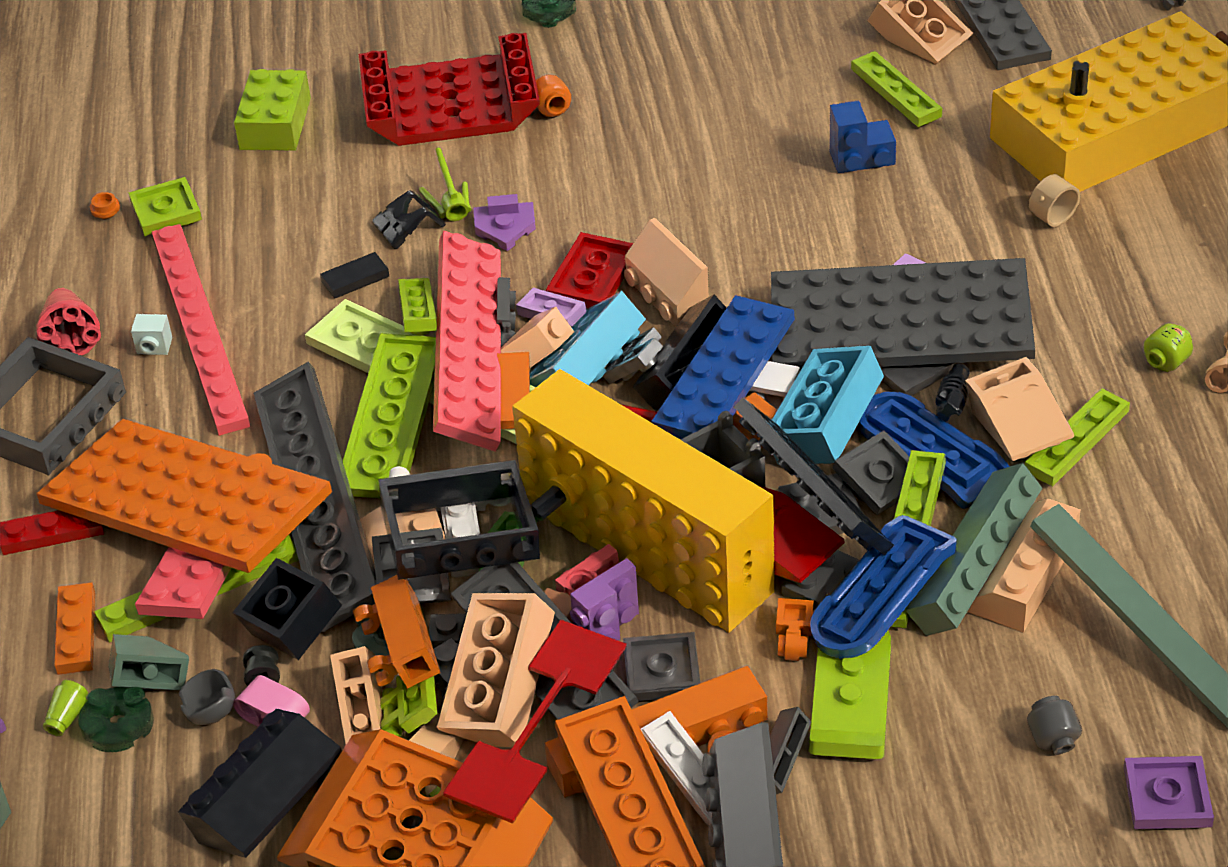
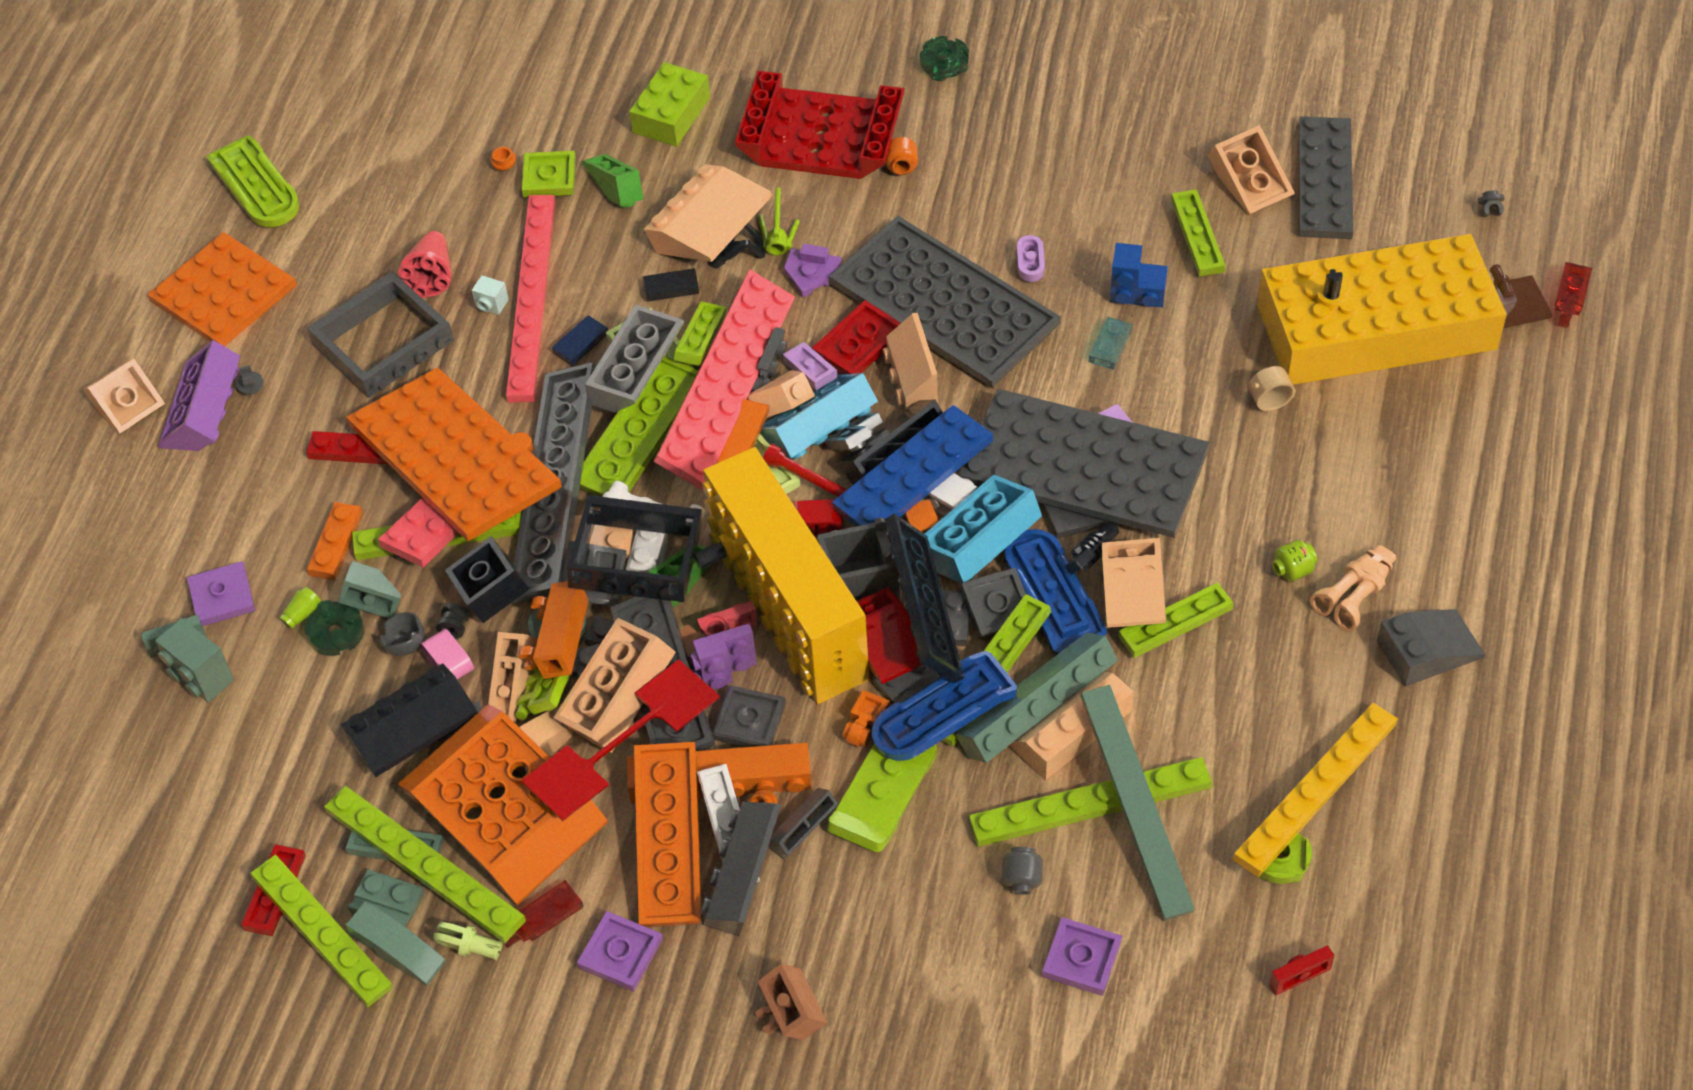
camera: 20 degrees right, 10 degrees up
(246, 192) = (616, 179): none -> bright green slope
(276, 353) = (580, 340): none -> dark blue tile
(356, 344) = (632, 358): none -> light grey slope
(366, 195) = (706, 214): none -> light nougat slope
(718, 219) = (960, 305): none -> dark grey plate
(736, 153) = (1030, 258): none -> lavender plate
(861, 207) = (1110, 343): none -> clear light blue plate
(1074, 644) = (1083, 803): none -> lime plate

